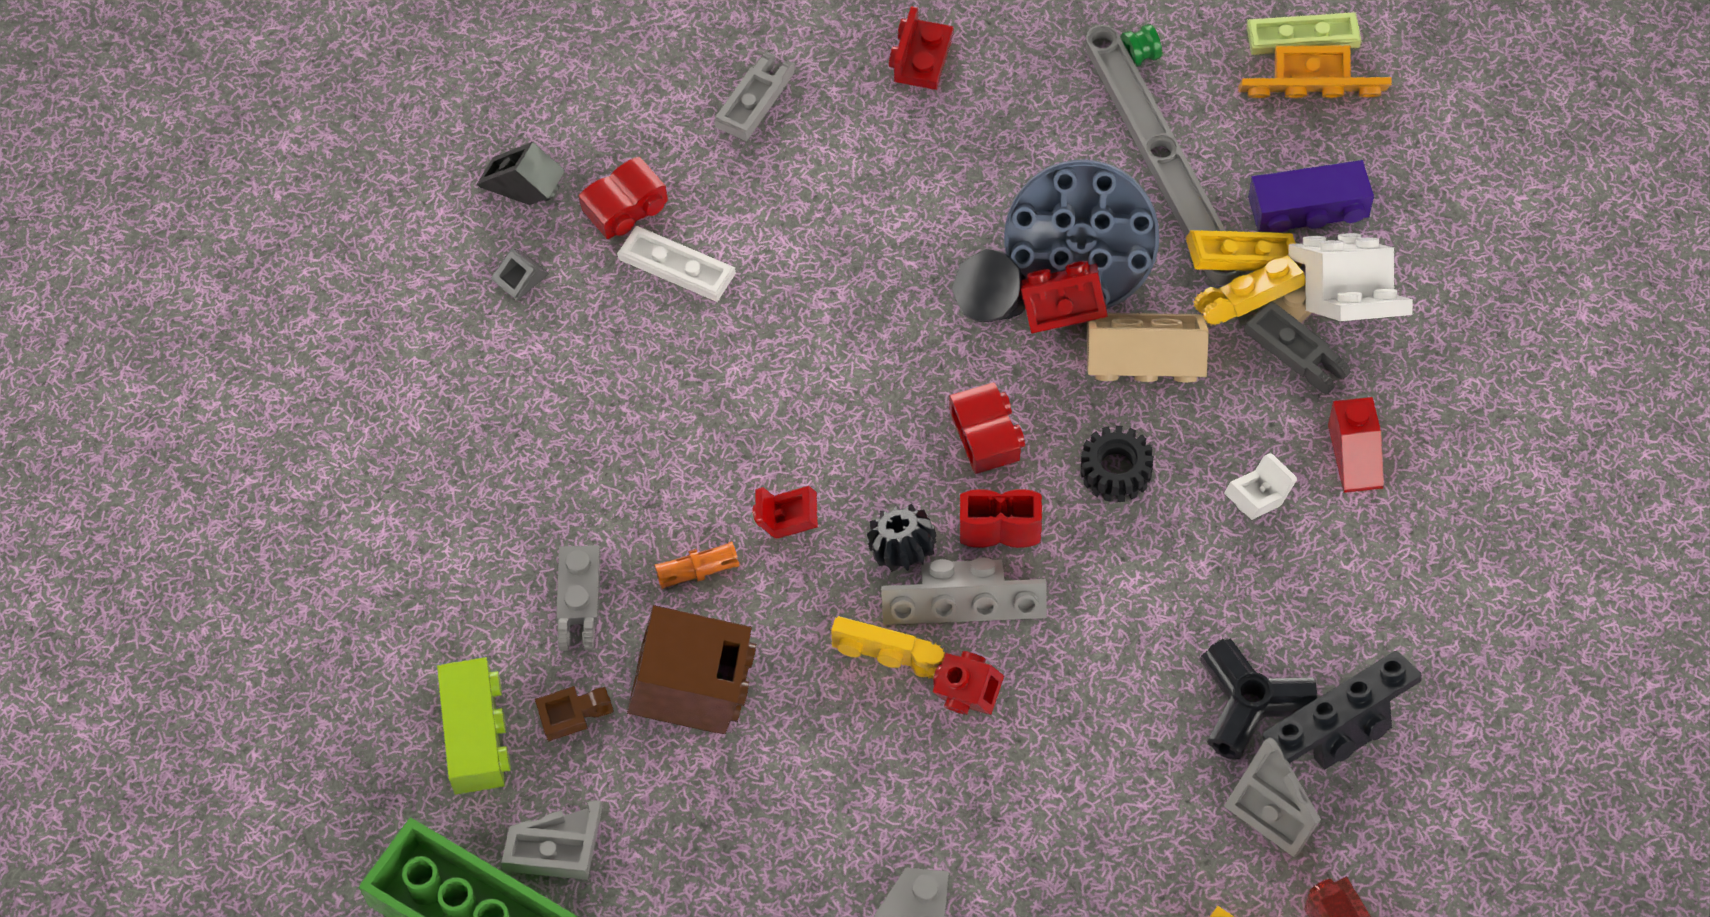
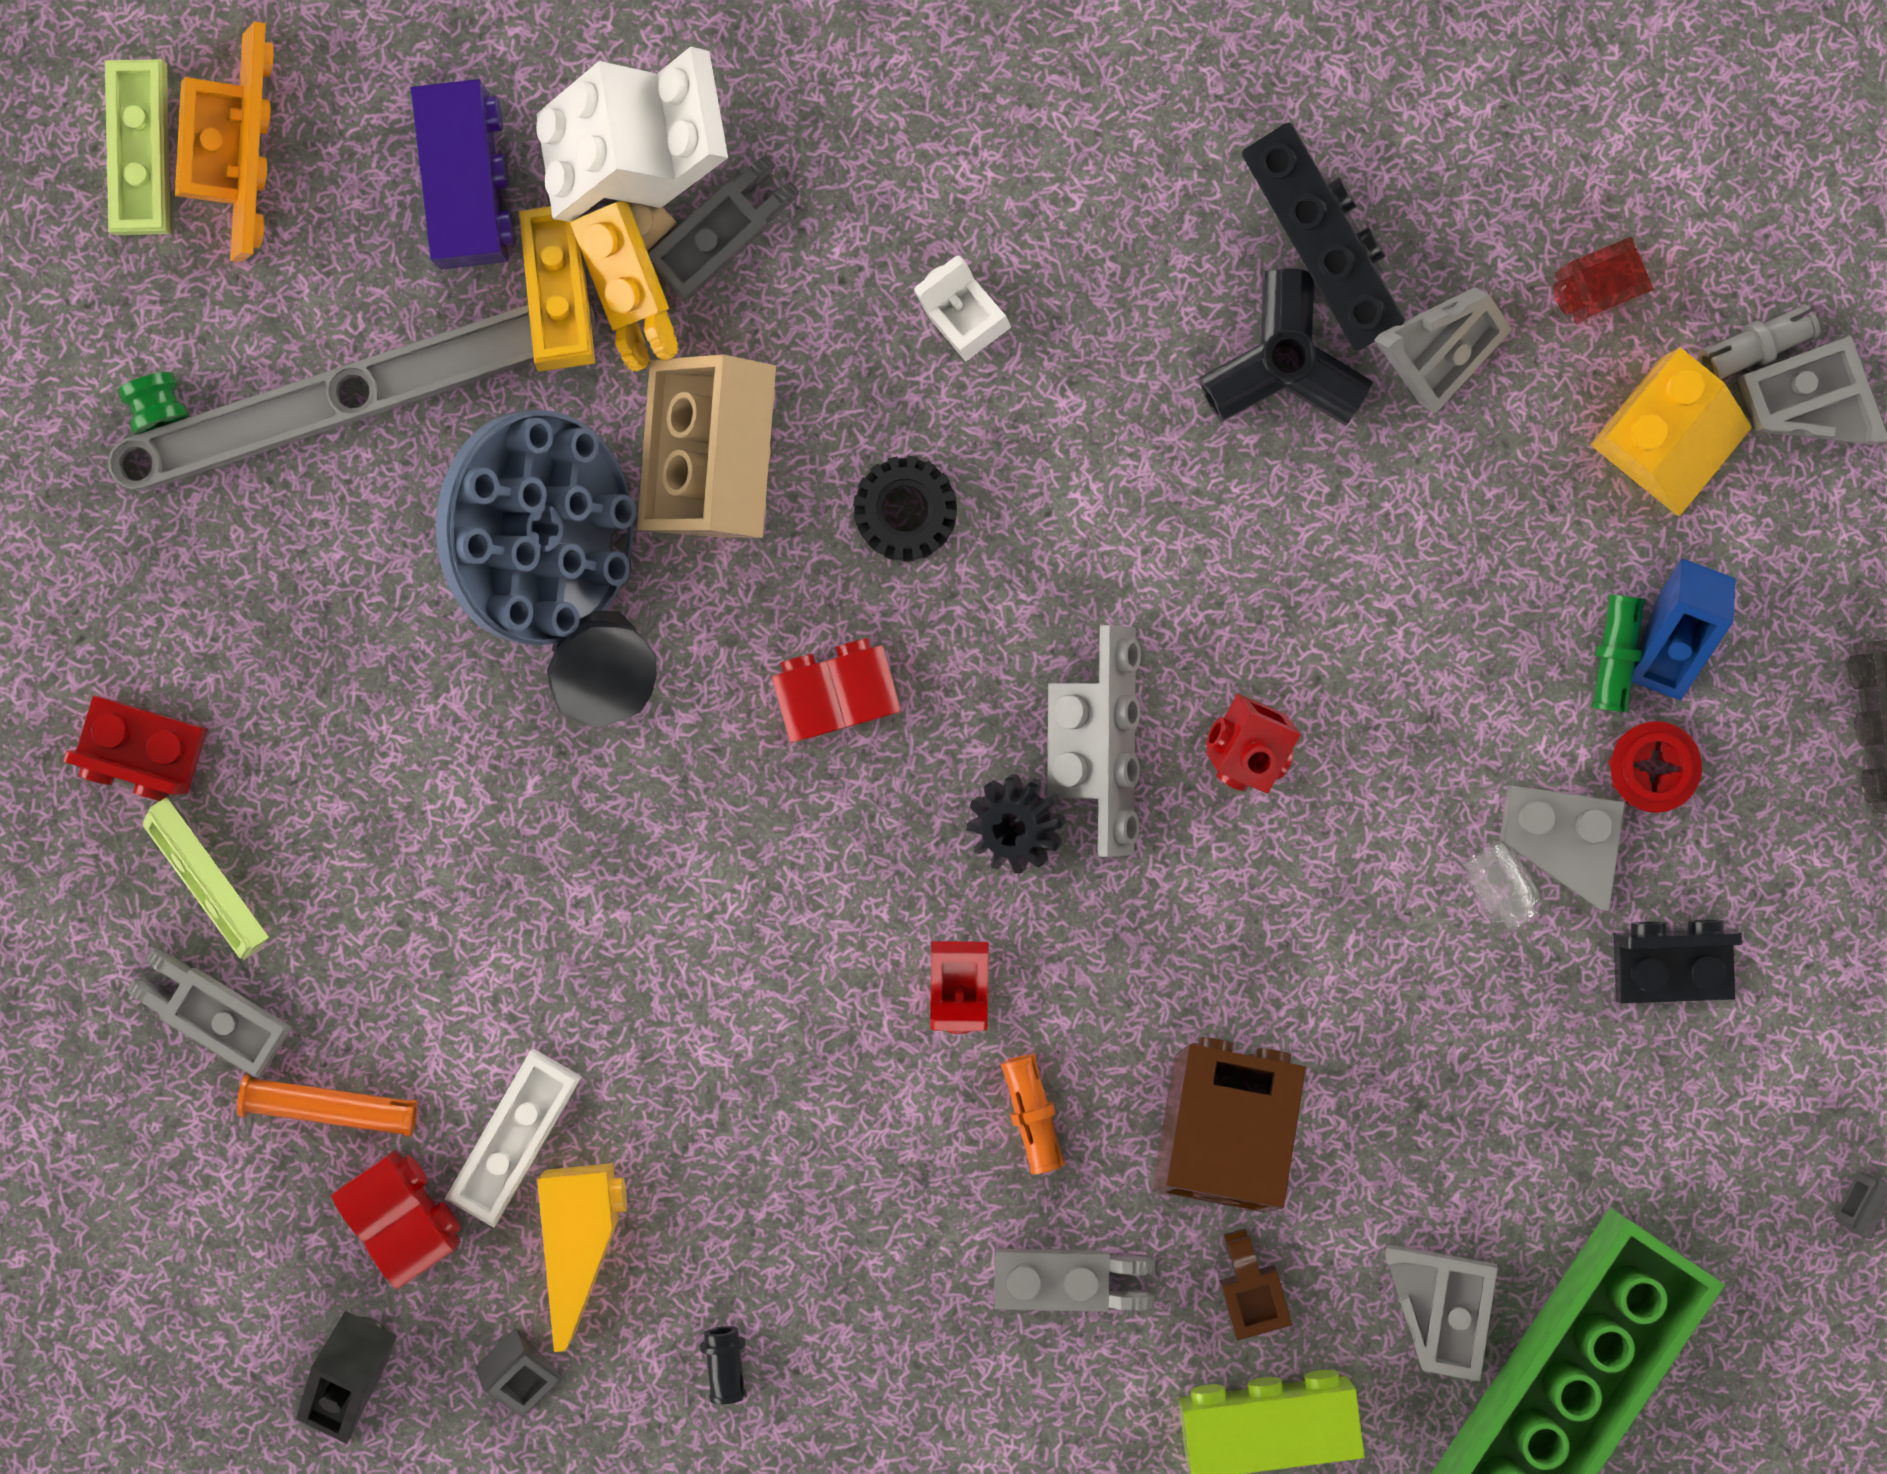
camera: 90 degrees left, 30 degrees up
(523, 387) = (724, 1364): none -> black pin
(610, 296) = (577, 1226): none -> yellow slope
(696, 159) = (326, 1106): none -> orange pin
(840, 86) = (204, 879): none -> yellowish green tile
(873, 866) = (1502, 885): none -> clear brick
(886, 645) = (1183, 848): yellow hinge -> none
(1000, 518) = (998, 664): red brick -> none
(1063, 297) = (633, 563): red bracket -> none
(1357, 444) = (898, 162): slope -> none

